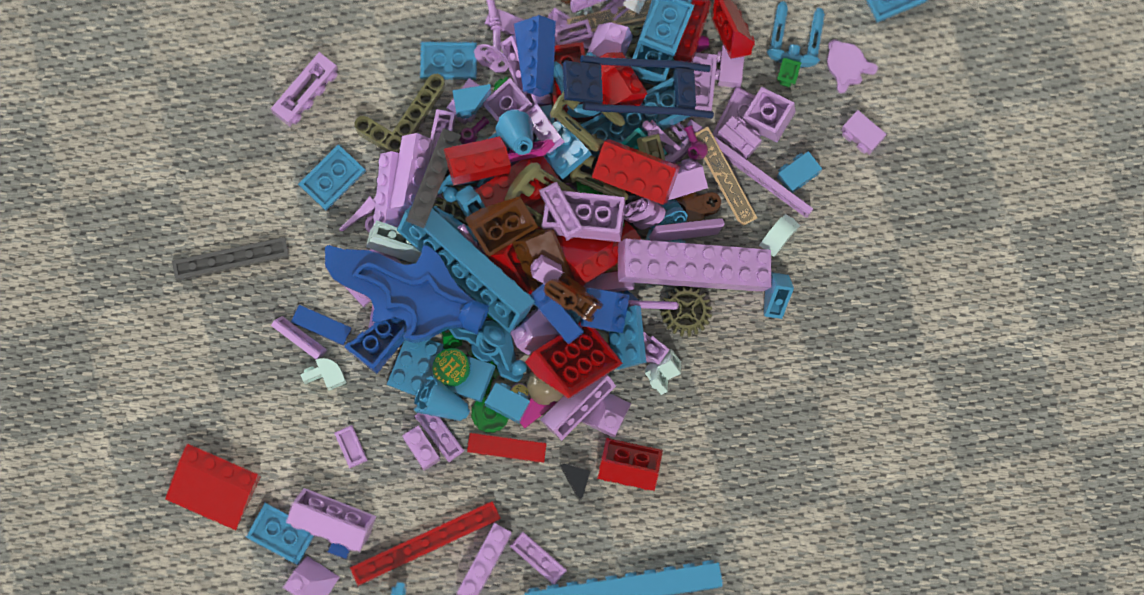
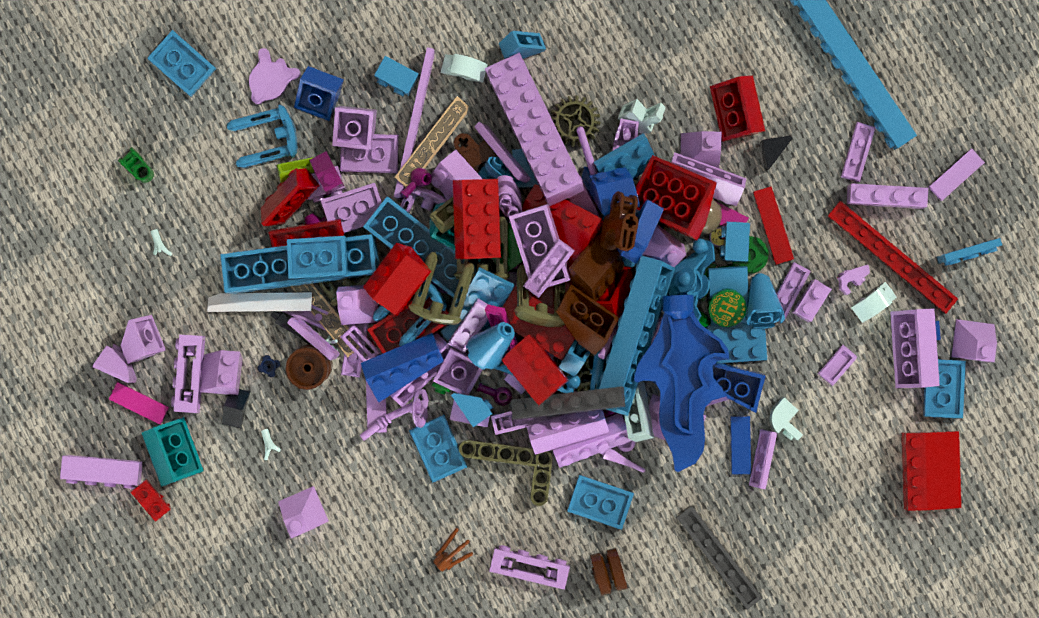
camera: 115 degrees left, 10 degrees up
(267, 153) = (608, 571): none -> reddish brown wheel
(348, 21) = (444, 560): none -> dark orange plant
(392, 506) = (874, 302): none -> light aqua brick
(425, 498) = (855, 275): none -> lavender hand
(545, 269) = (607, 258): lavender brick -> none
(584, 85) = (417, 303): dark blue plate -> none
(652, 128) = (425, 221): lavender piece -> none
(738, 69) = (326, 172): none -> magenta slope
(739, 137) = (389, 144): lavender brick -> none
(757, 51) = (285, 168): none -> lime slope
(788, 72) = (305, 127): green bracket -> none
(815, 98) = (318, 93): none -> blue slope
(863, 133) = (331, 34): lavender brick -> none

